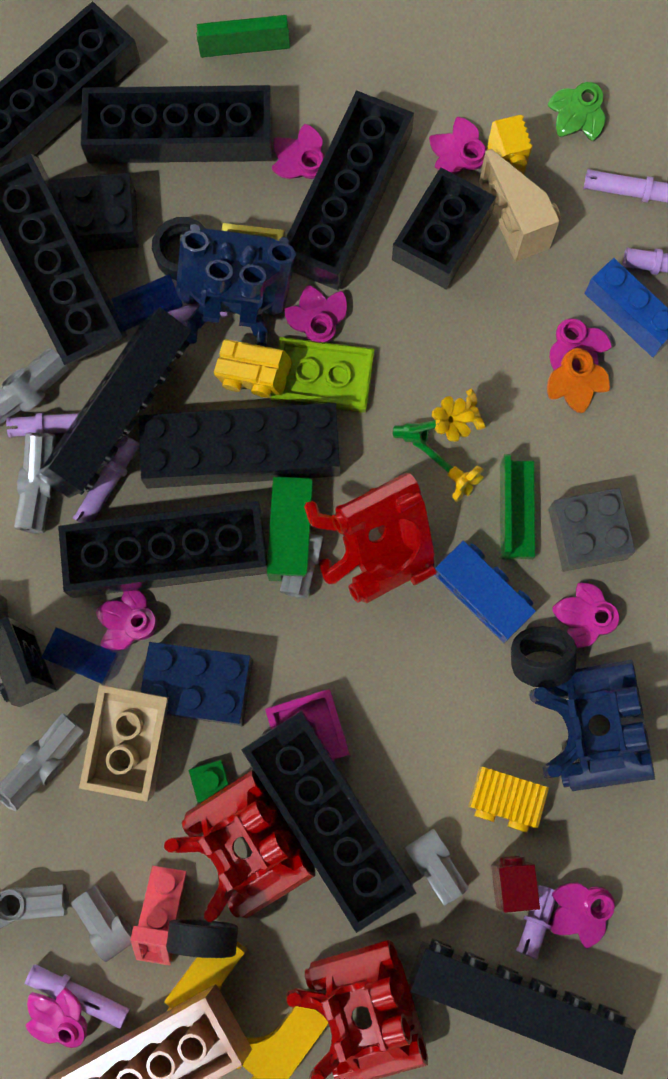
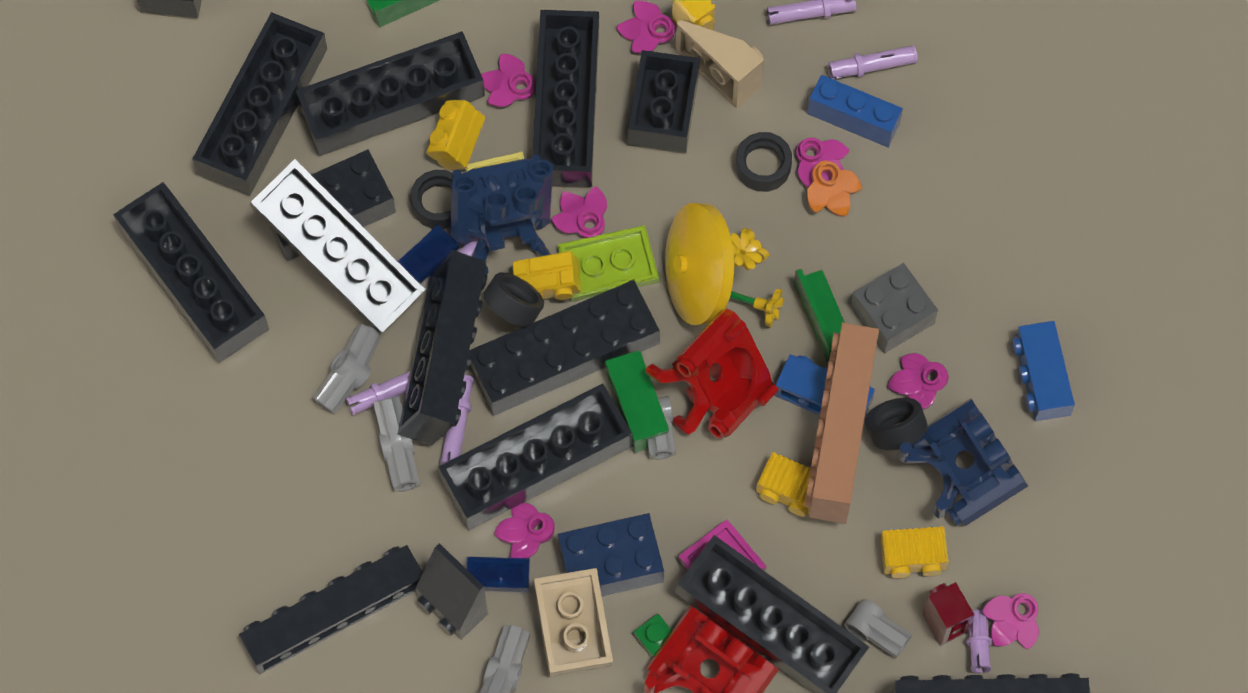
camera: 25 degrees left, 10 degrees down
(193, 390) = (513, 299): none -> black tyre
(223, 188) = (455, 134): none -> yellow brick
(406, 412) = (699, 263): none -> yellow dish
(410, 677) = (785, 483): none -> yellow brick
(487, 640) = (841, 423): none -> nougat brick
(530, 306) = (763, 182): none -> black tyre

